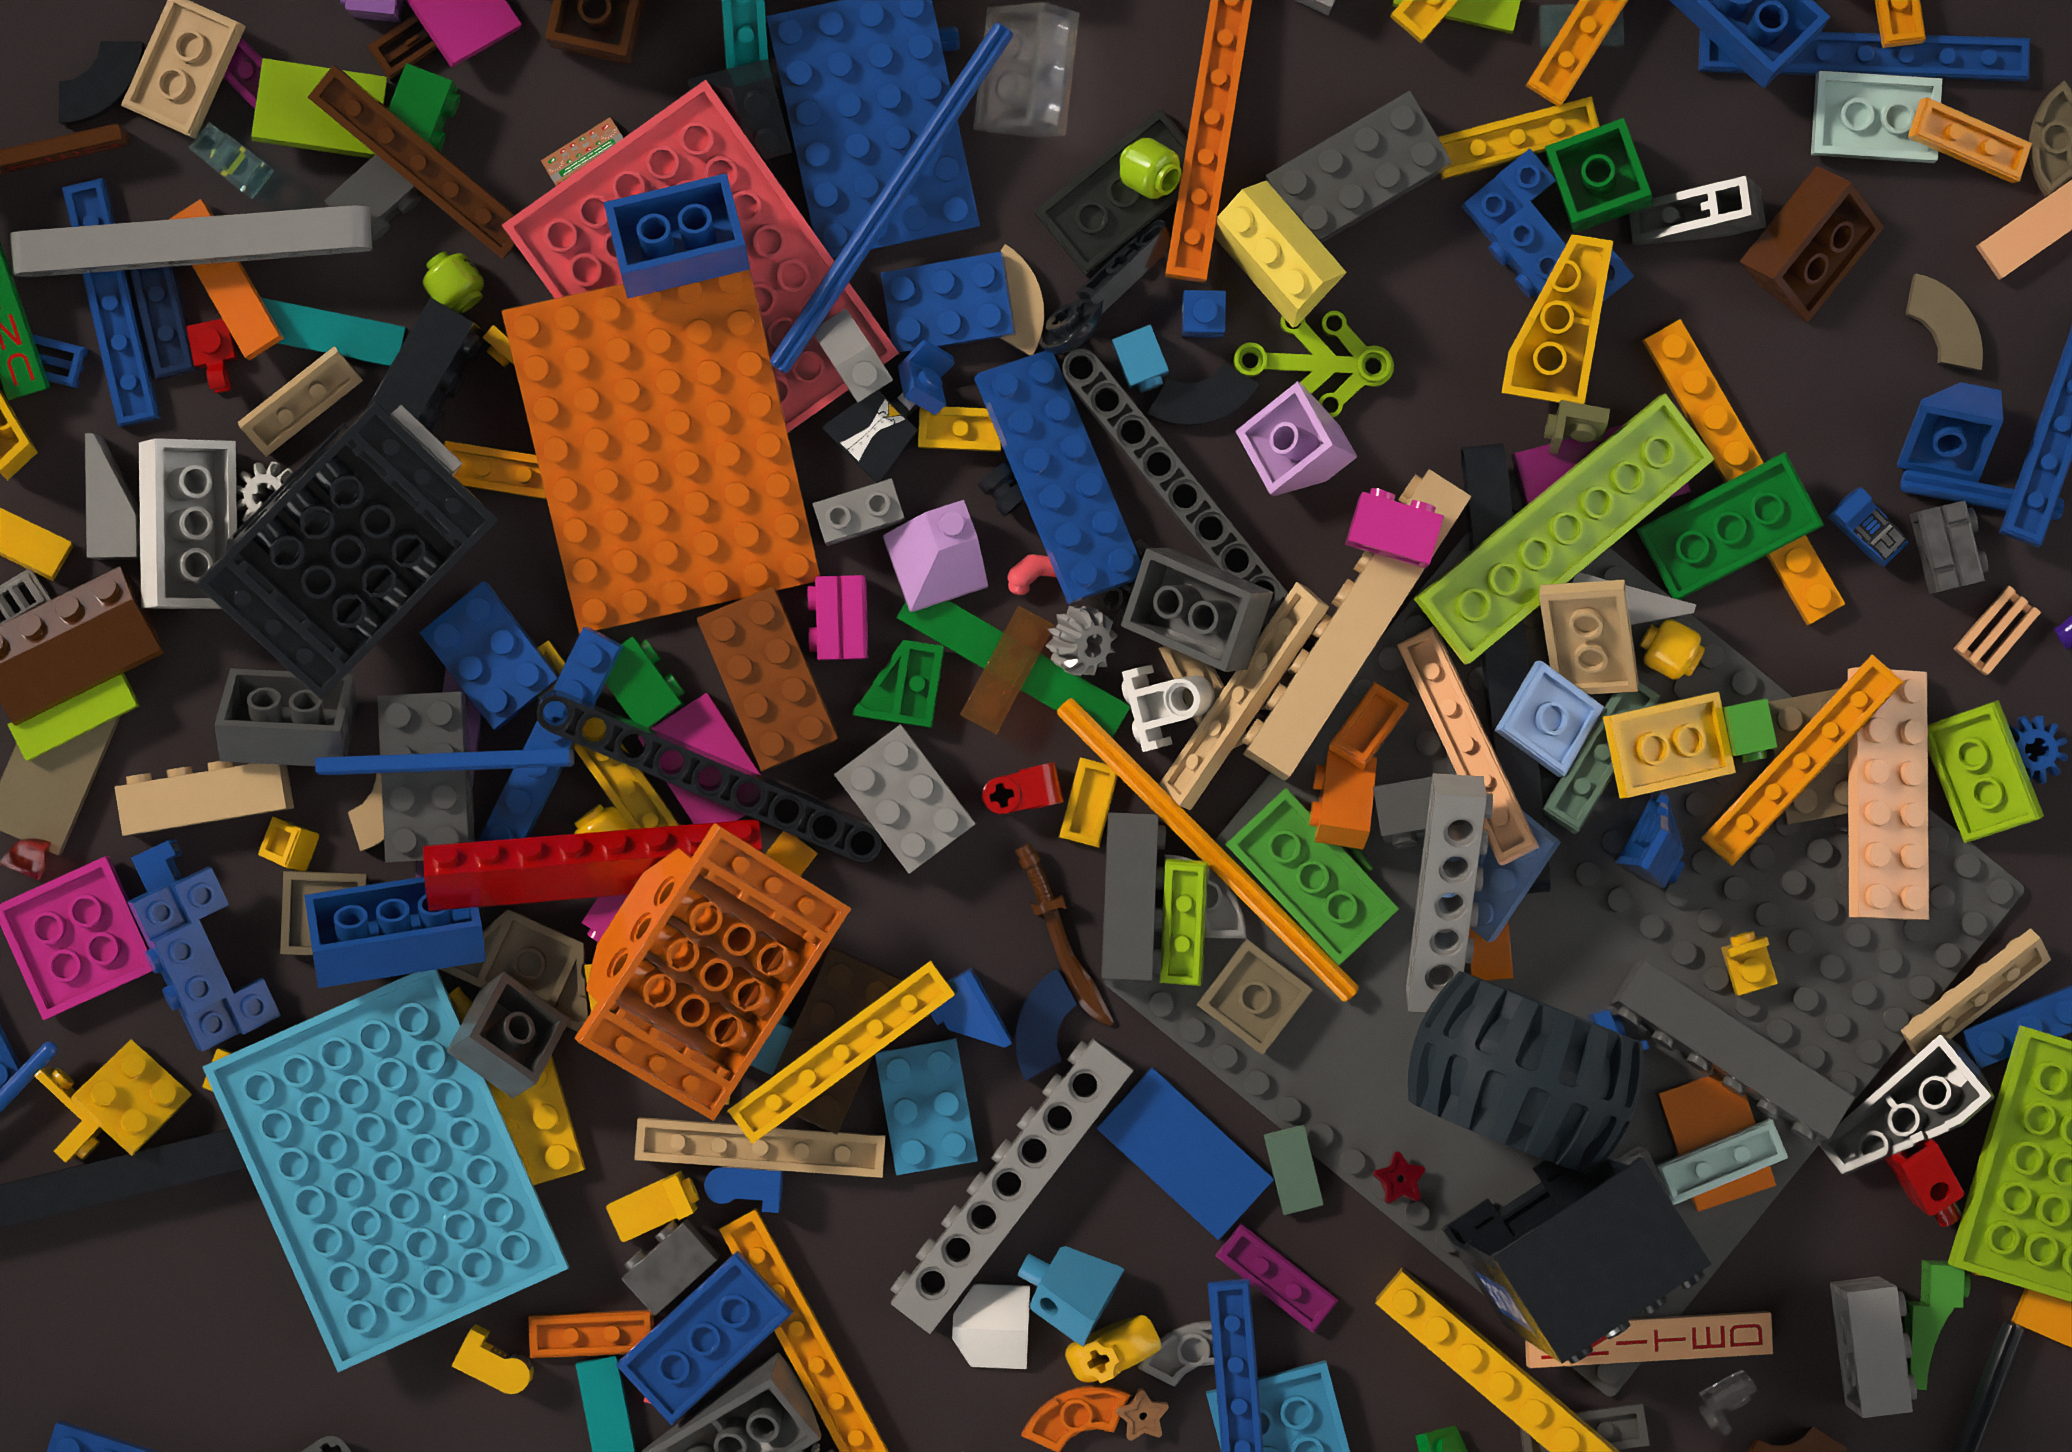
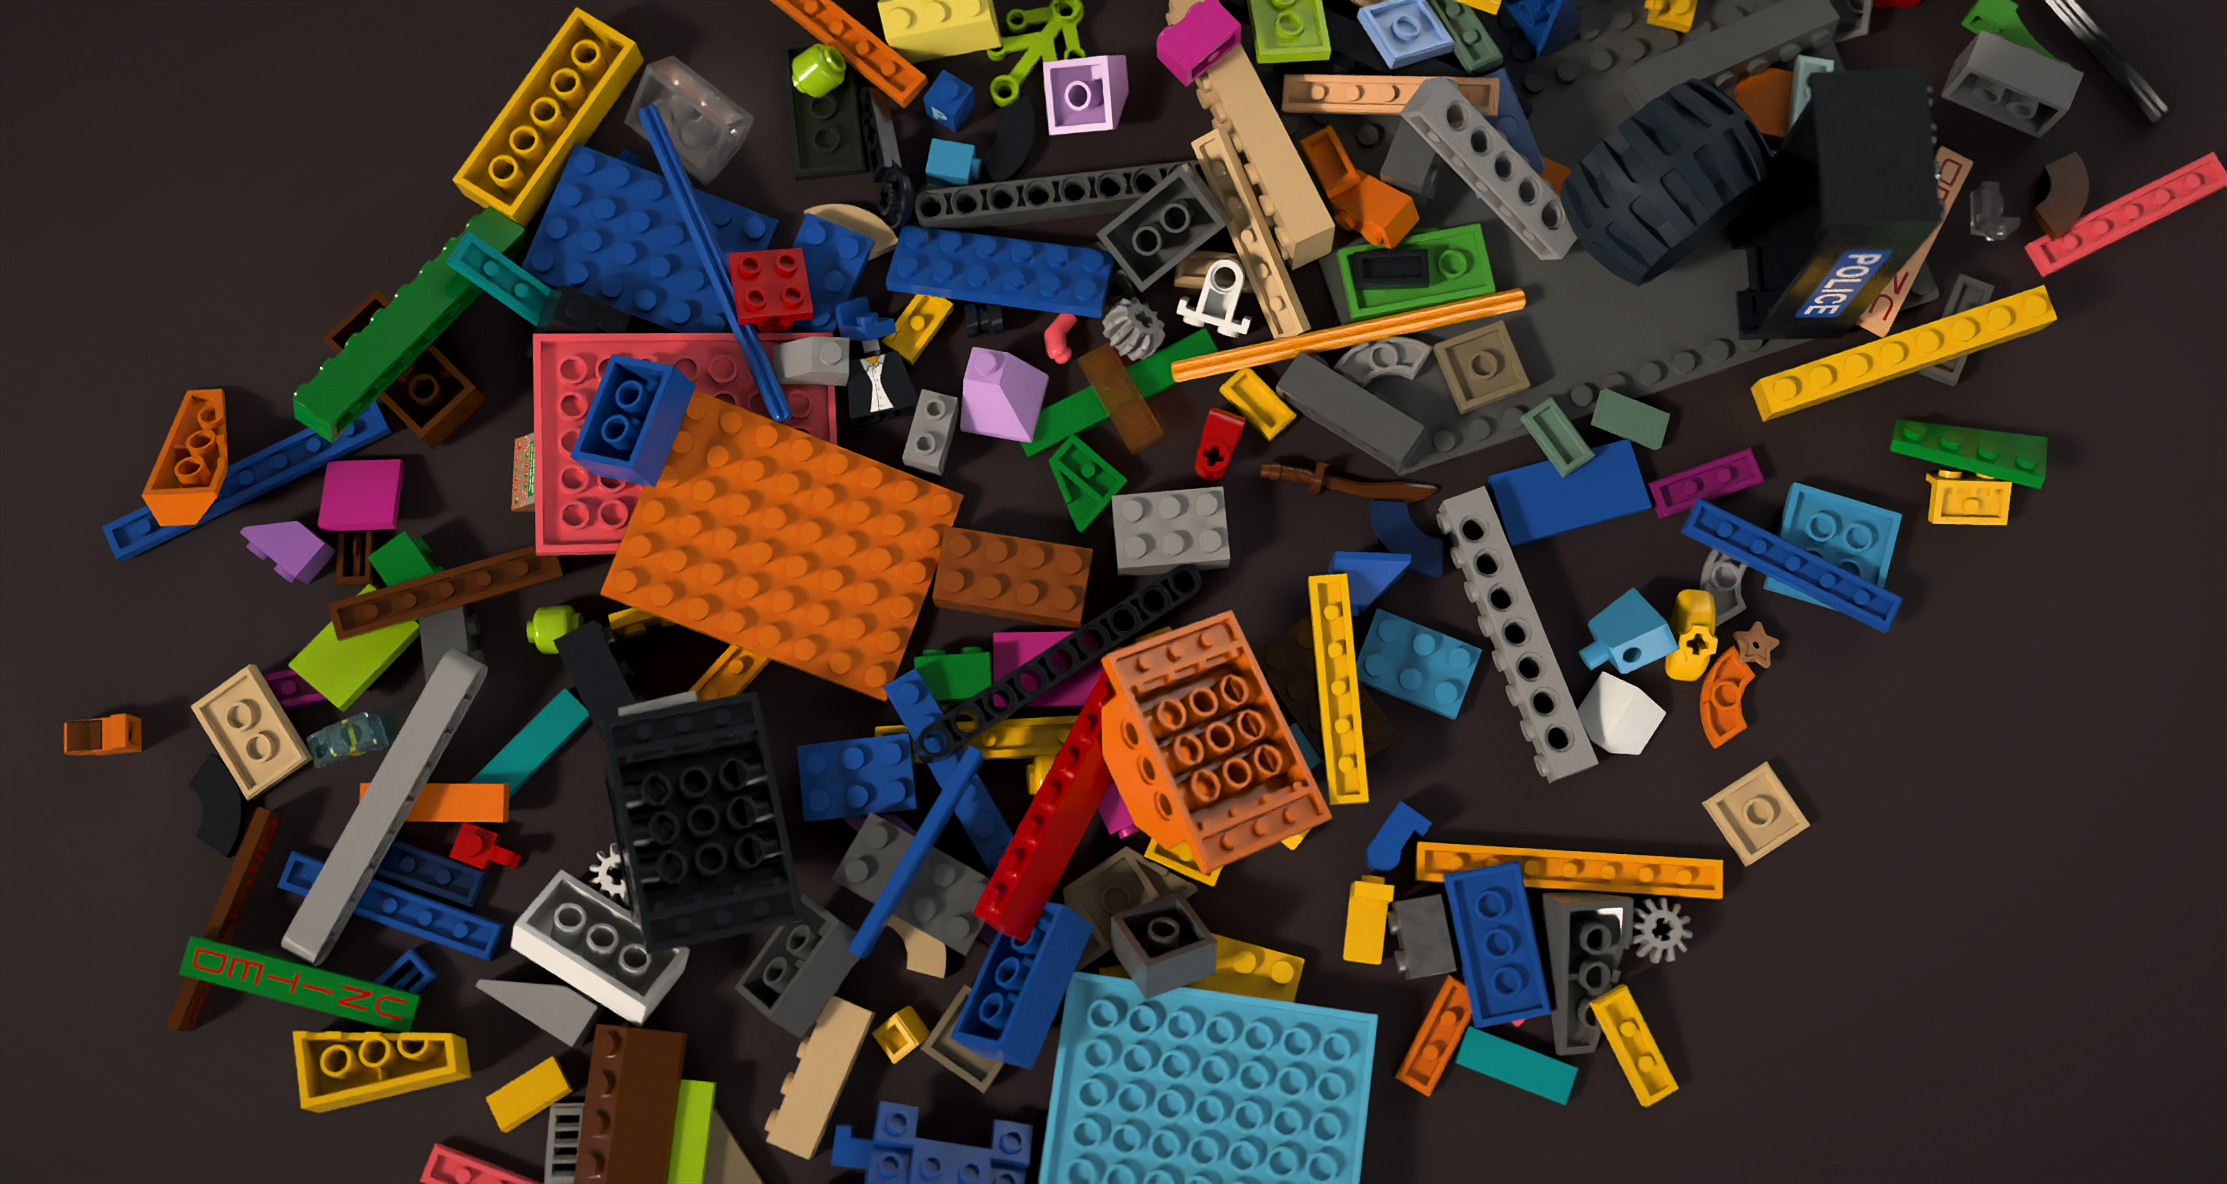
camera: 60 degrees left, 10 degrees down
(300, 401) = (566, 803): tan plate -> none
(492, 1365) = (1430, 1122): yellow leg -> none
(777, 1150) = (1364, 820): tan plate -> none
(840, 618) = (1002, 497): dark pink brick -> none
(898, 270) = (770, 288): none -> red plate
(1184, 922) = (1394, 381): lime tile -> none
(1230, 1110) = (1557, 437): none -> sand green tile
(1294, 852) = (1391, 269): none -> black tile
(1395, 1189) = (1684, 353): dark red plate -> none

